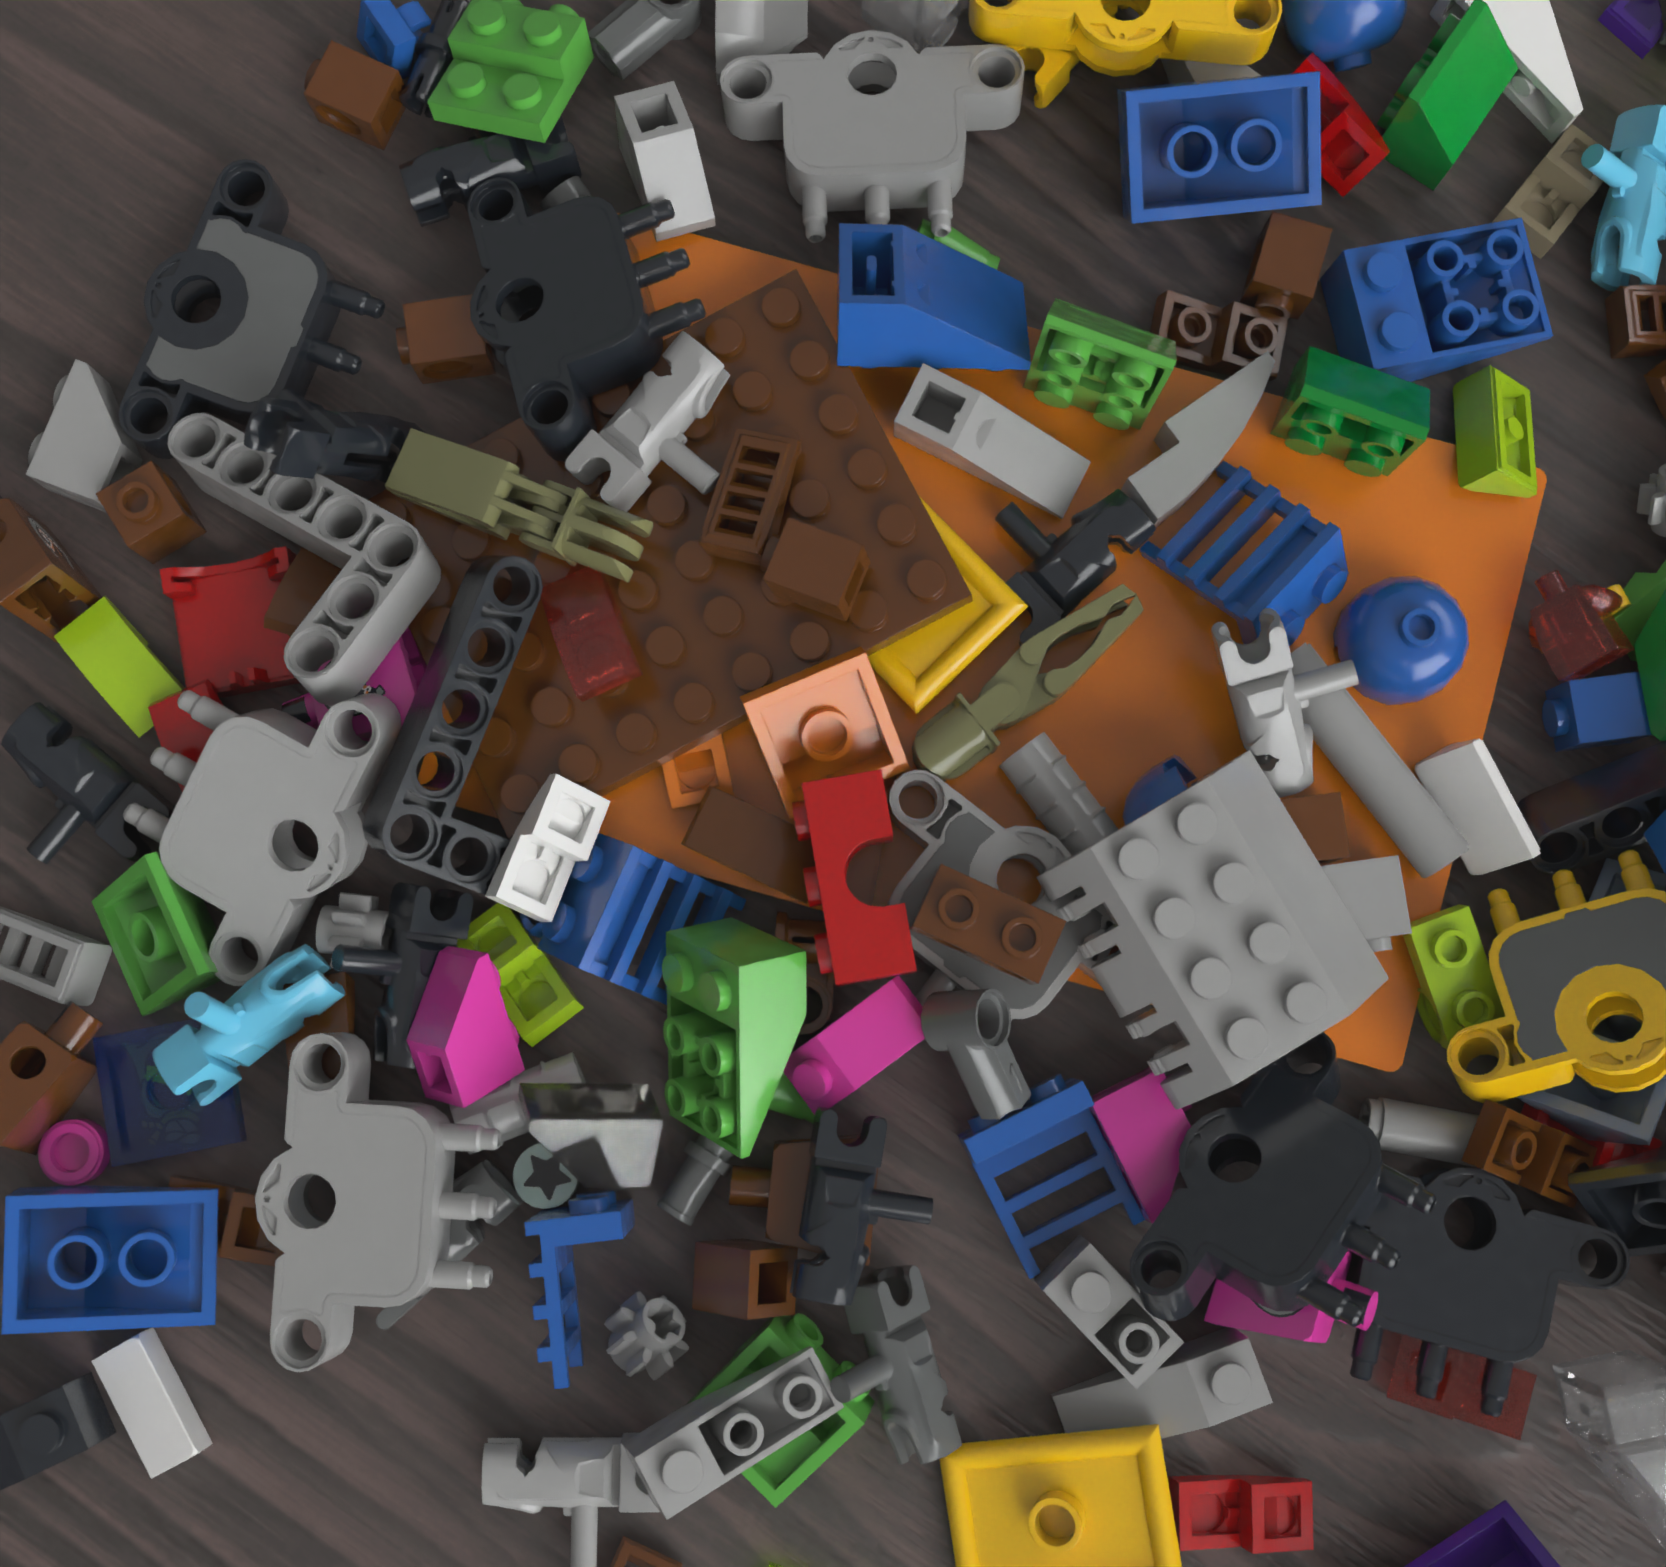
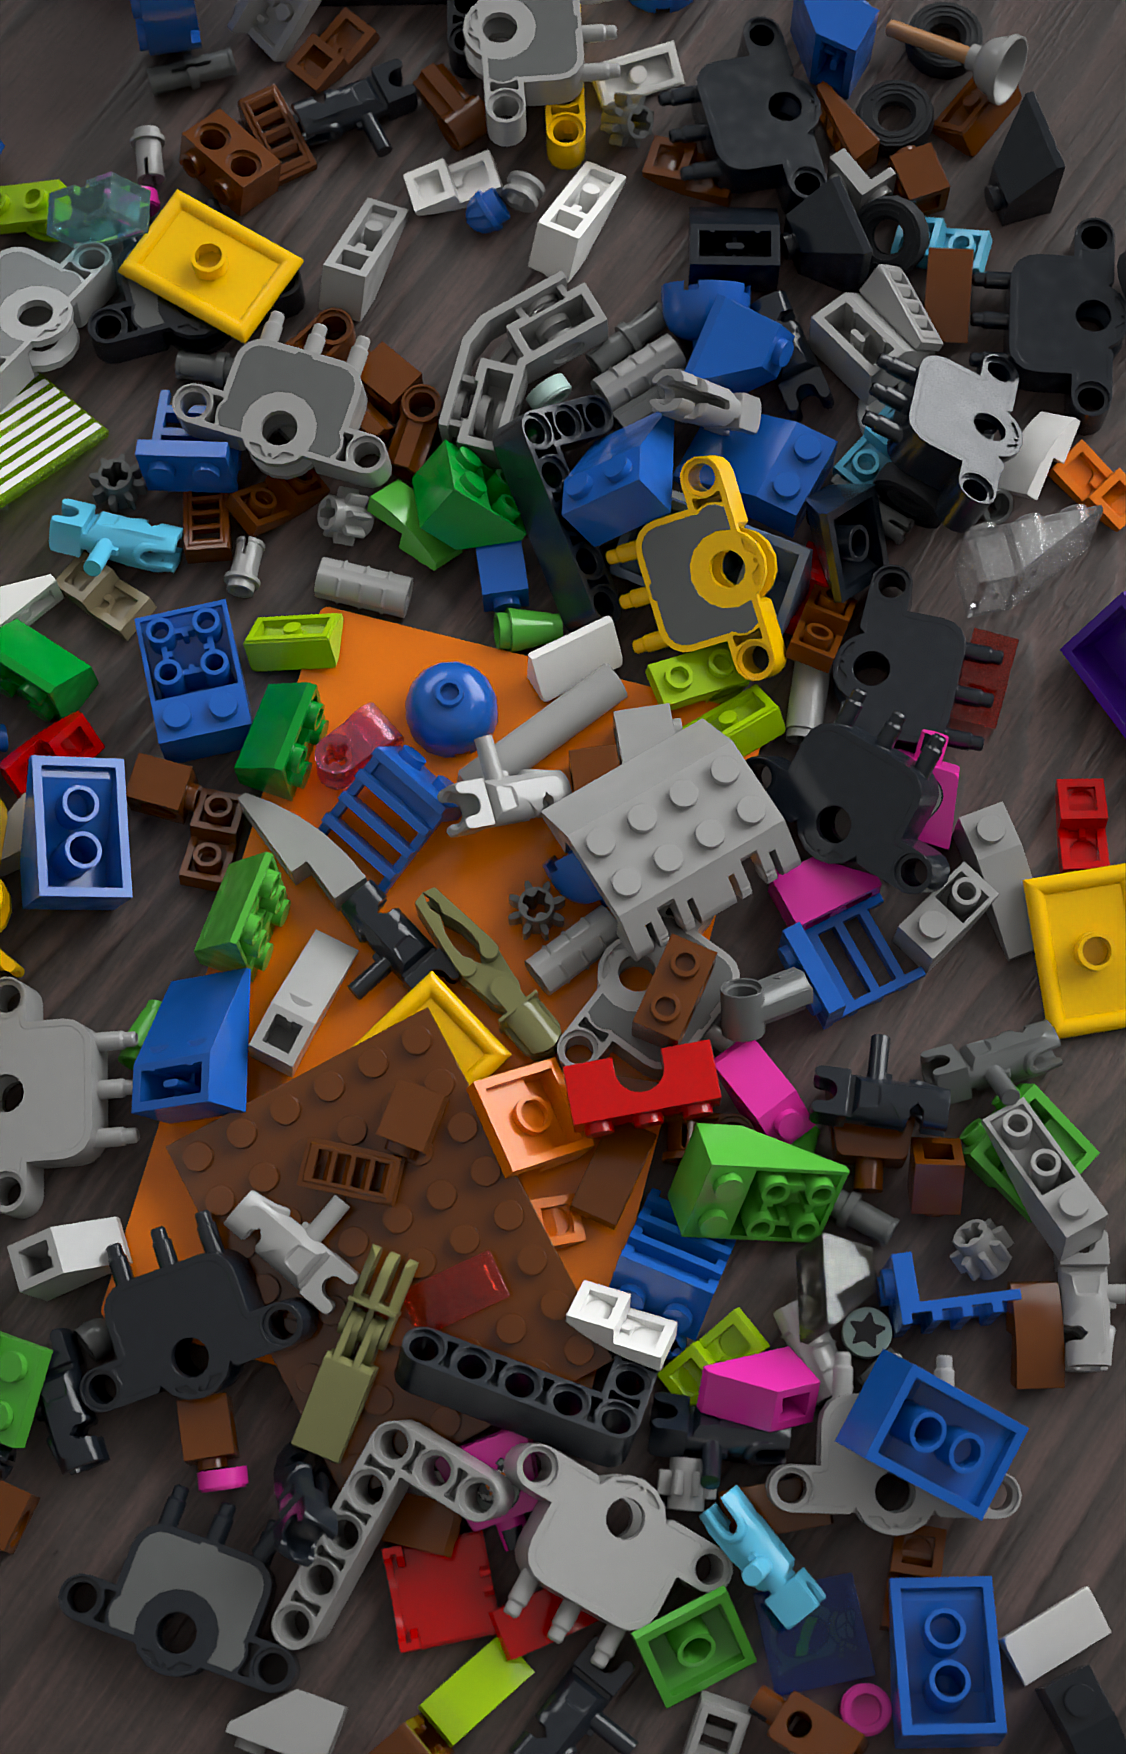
camera: 85 degrees left, 10 degrees down
(151, 512) = (351, 1667): reddish brown brick -> none
(369, 1251) = (931, 1434): none -> blue slope
(385, 359) = (222, 1479): none -> dark pink tile
(527, 1408) = (1036, 1335): none -> reddish brown slope
(1132, 745) = (529, 900): none -> dark grey gear
(1366, 519) = (354, 743): none -> clear pink piece
(1389, 1040) = (747, 719): none -> lime slope
(1520, 744) = (525, 629): none -> bright green cone
(1577, 520) = (363, 587): none -> light grey axle
(1577, 626) = (442, 587): clear red piece -> none
(1601, 370) = (245, 566): none -> light grey pin

